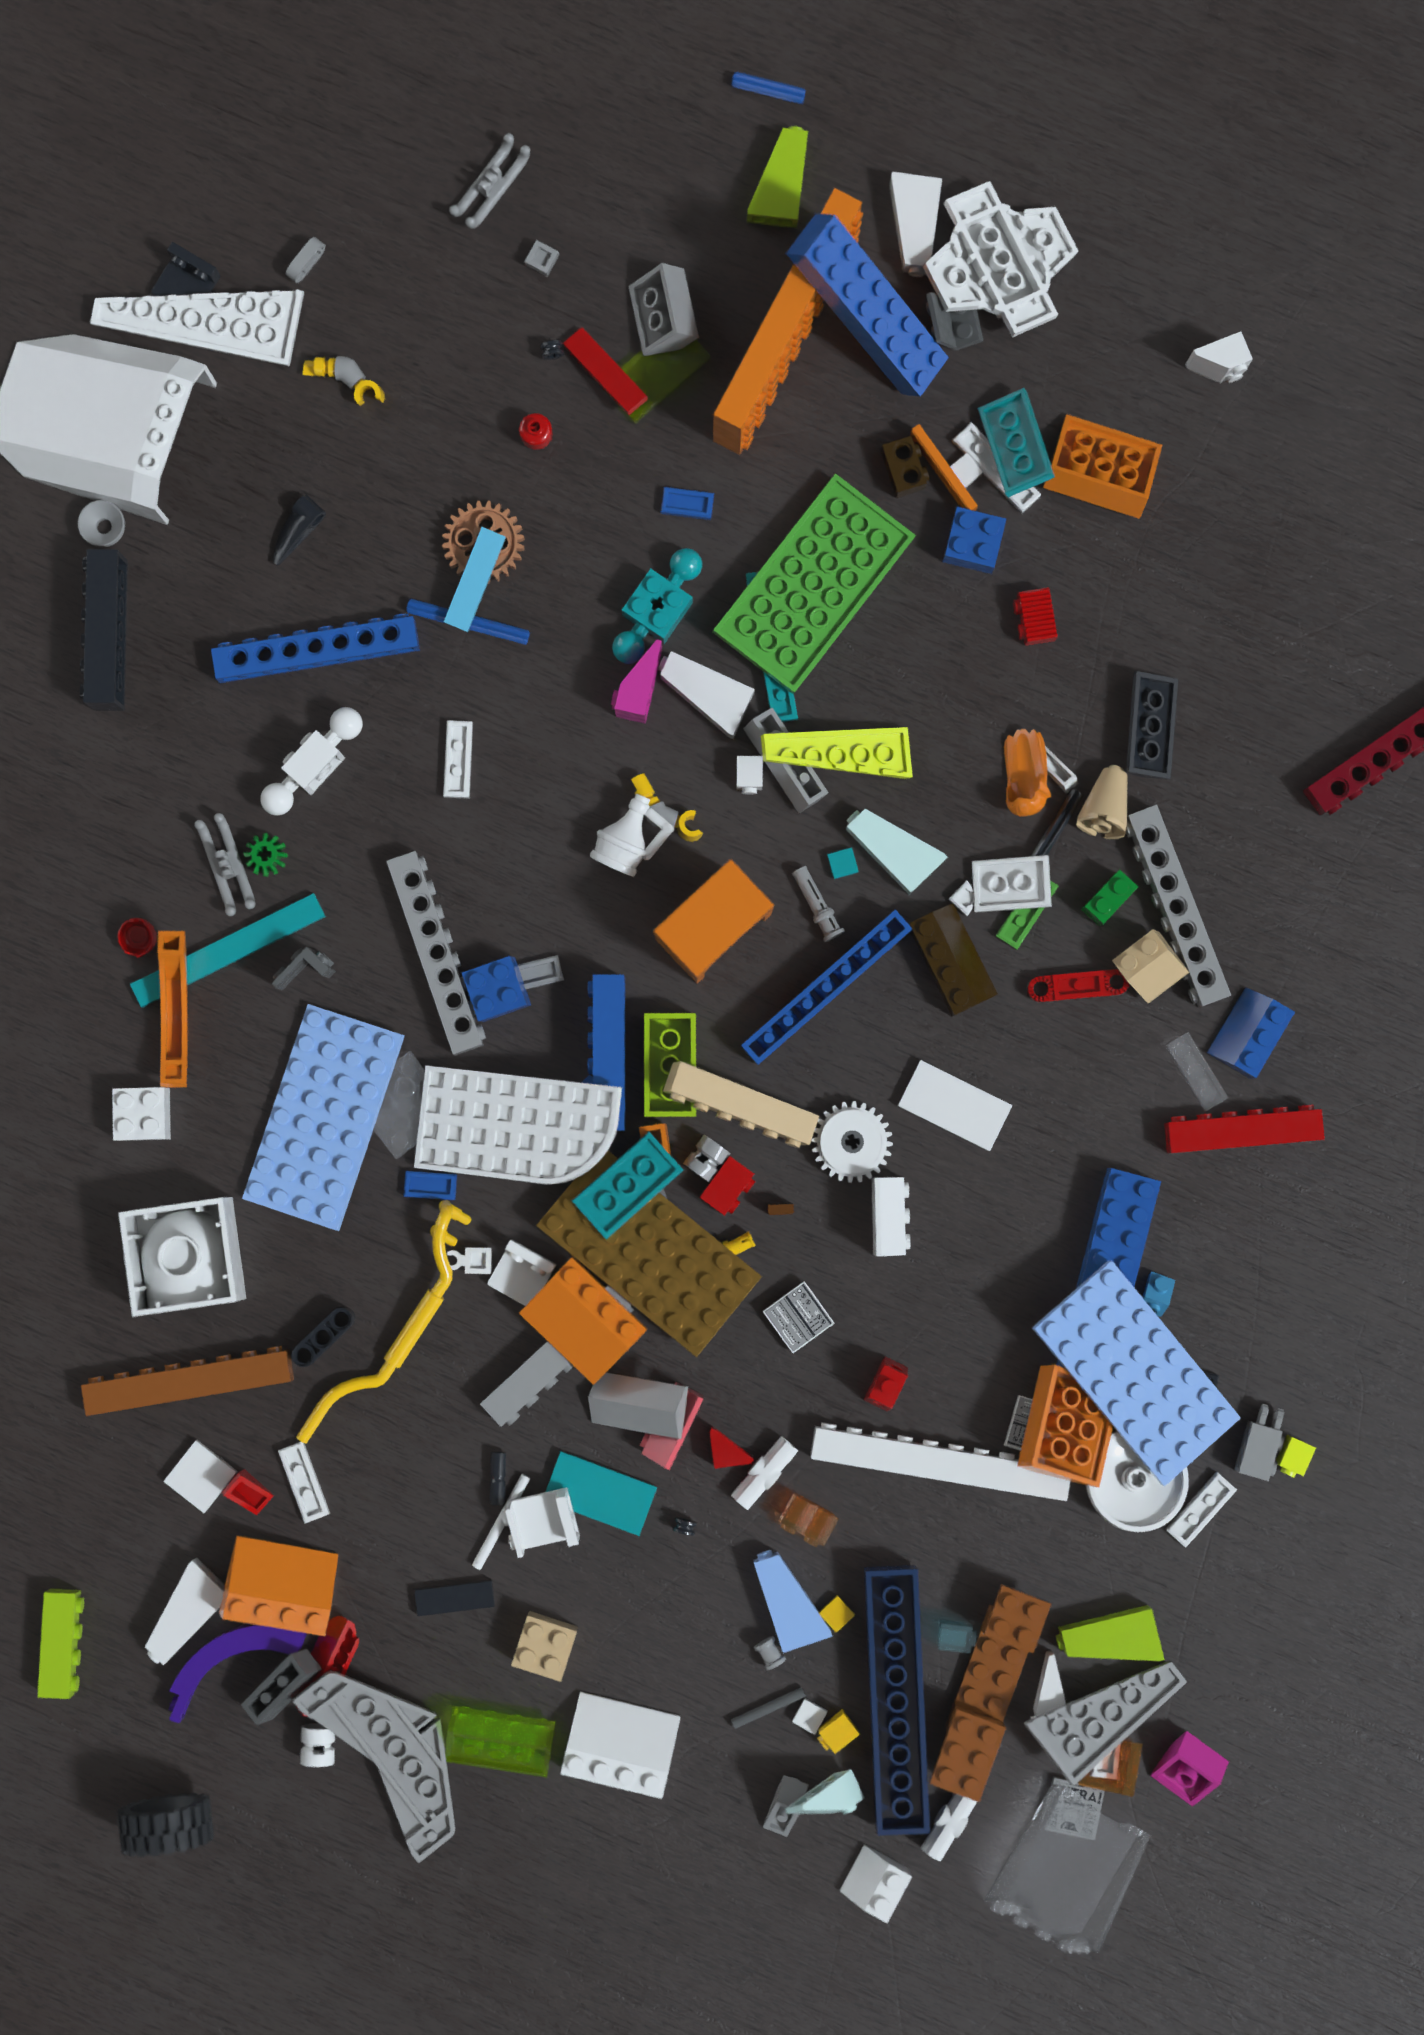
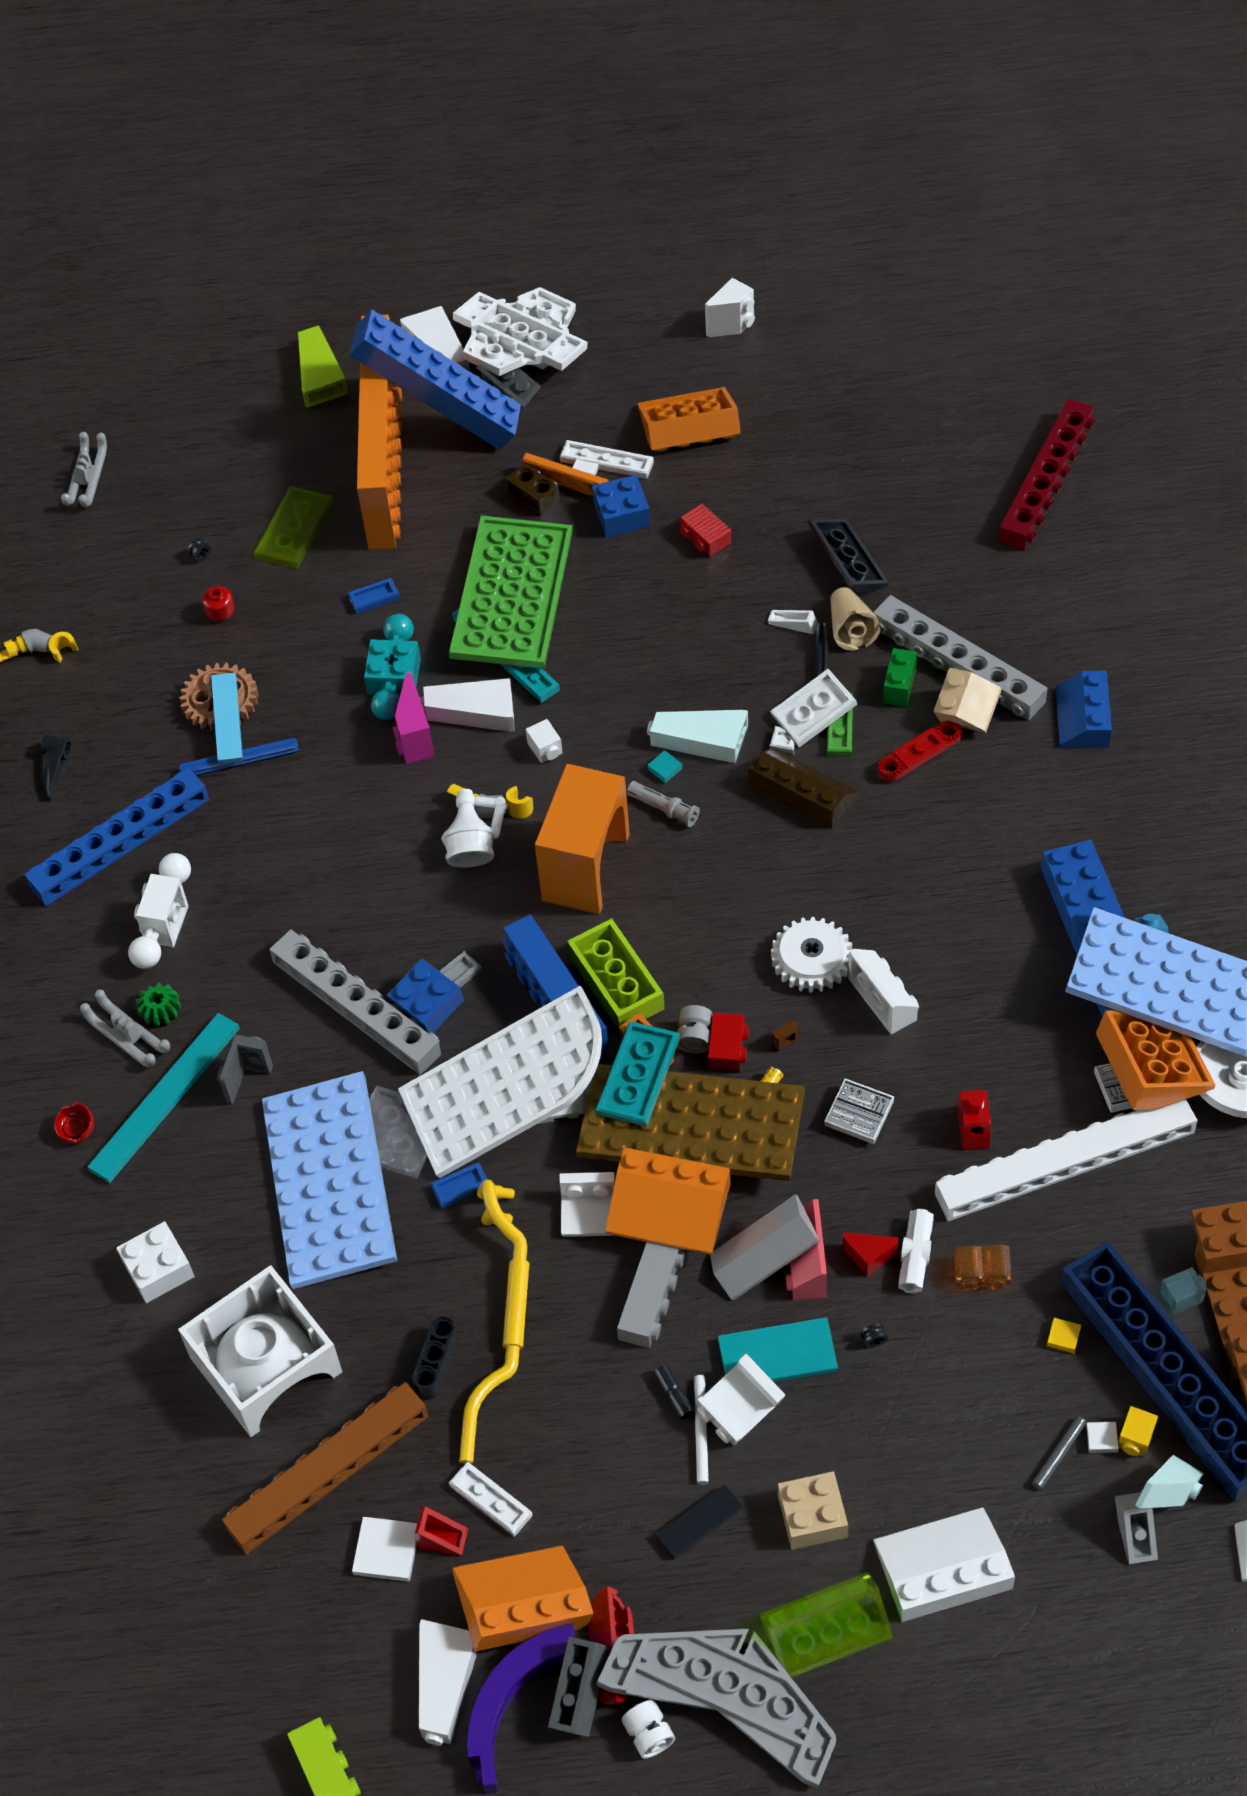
camera: 20 degrees left, 30 degrees down
(173, 1008) = (134, 1149): orange arch -> none
(458, 759) = (288, 856): white tile -> none
(475, 1260) = (537, 1220): white plate -> none
(541, 258) = (155, 498): light grey plate -> none
(605, 371) = (252, 541): red tile -> none
(663, 310) = (274, 481): light grey slope -> none
(740, 1103) = (695, 964): tan brick -> none
(768, 87) = (271, 322): blue axle -> none
(769, 1653) = (1027, 1400): light grey bush -> none
(791, 1609) = (1015, 1348): light blue slope -> none
(798, 782) = (568, 714): light grey brick -> none
(826, 987) = (710, 853): blue brick -> none
(858, 751) = (621, 678): neon yellow wing -> none
(955, 1105) = (880, 886): white tile -> none
(1016, 442) = (610, 428): teal tile -> none
(1026, 773) = (771, 629): orange hair -> none
(1196, 1071) = (1061, 759): clear plate -> none
(1244, 1131) = (1131, 778): red brick -> none

